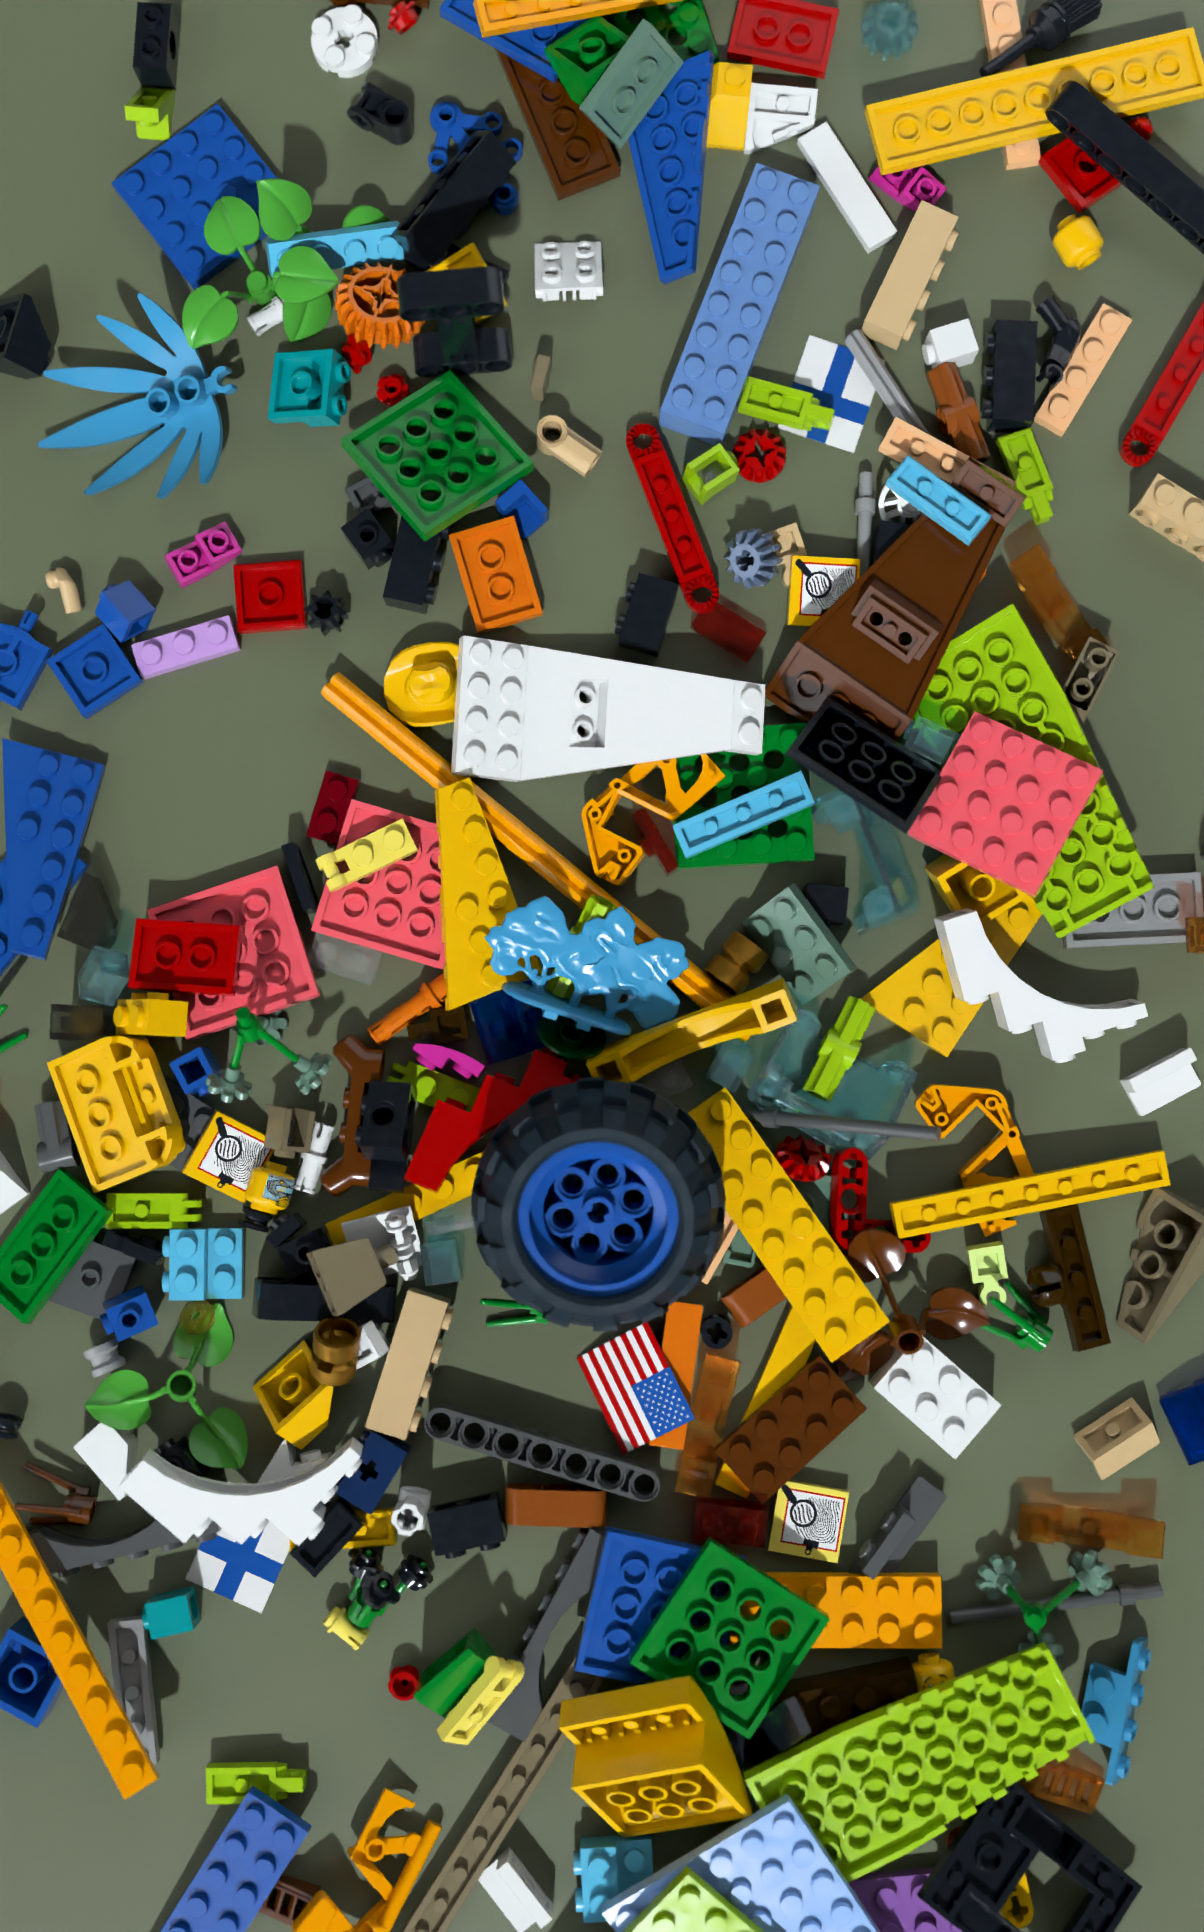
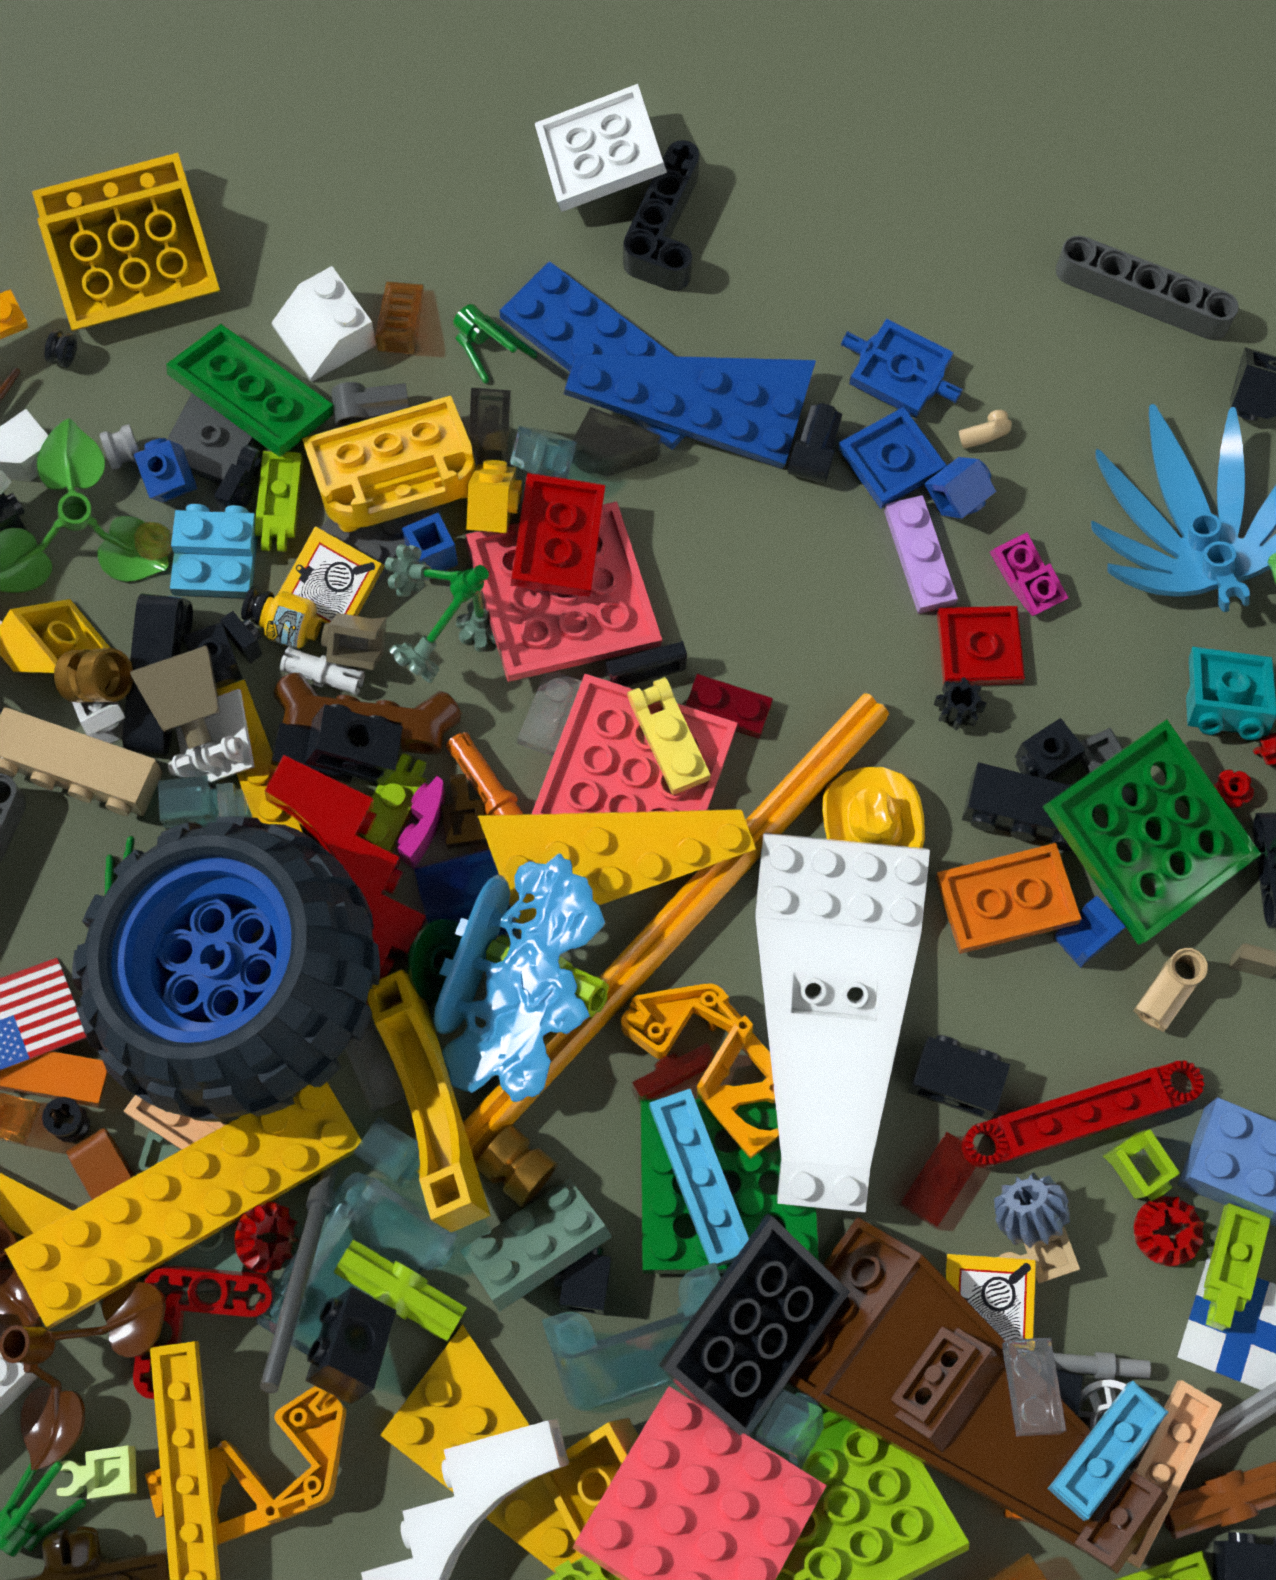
camera: 85 degrees right, 15 degrees down
(93, 739) = (814, 451): none -> black piece
(890, 1080) = (352, 1368): none -> black brick
(897, 553) = (1033, 1387): none -> clear plate

